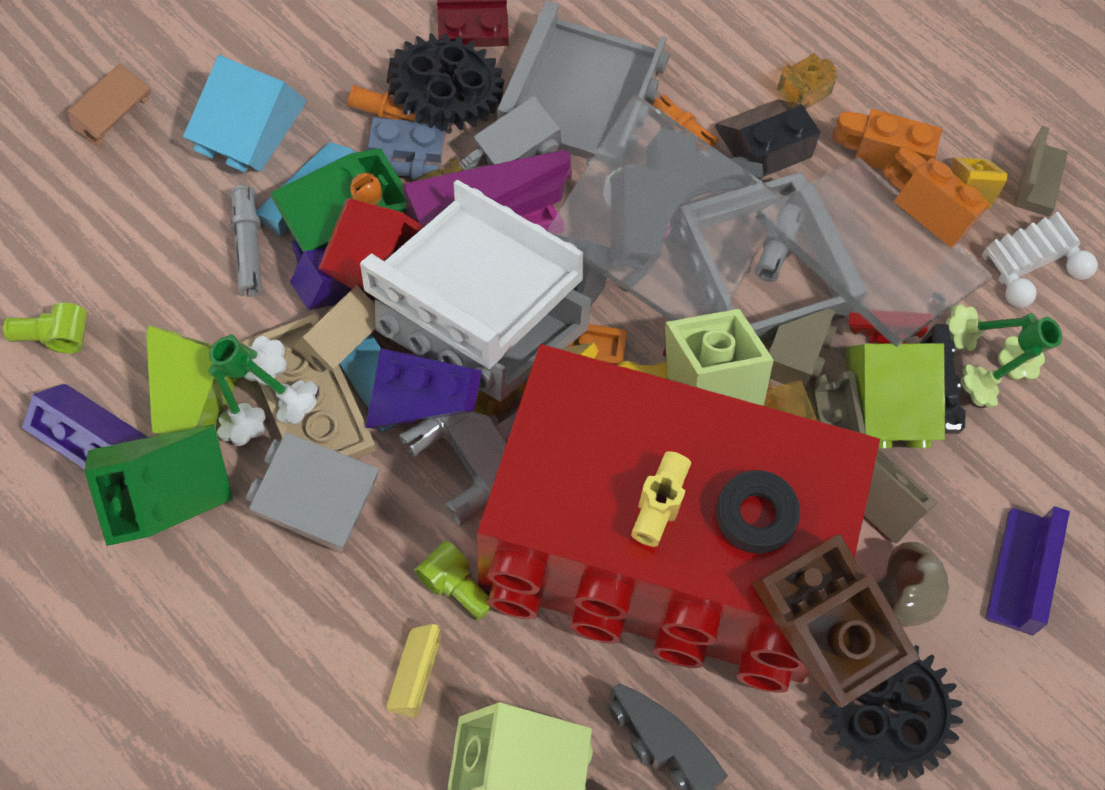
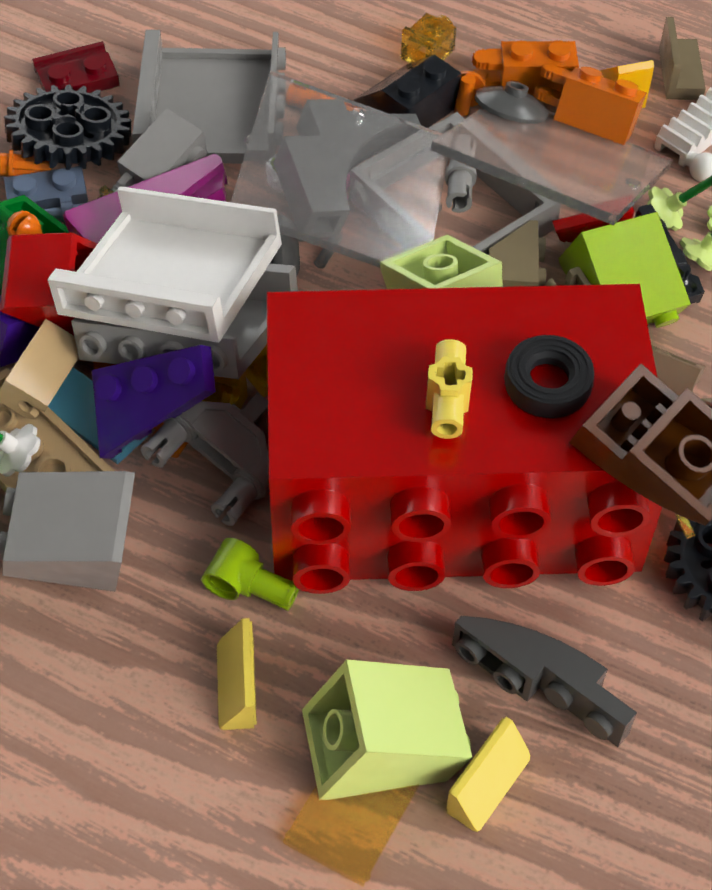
camera: 15 degrees left, 10 degrees down
(827, 148) = (469, 84): none -> orange plate
(858, 176) = (512, 103): none -> dark grey dish

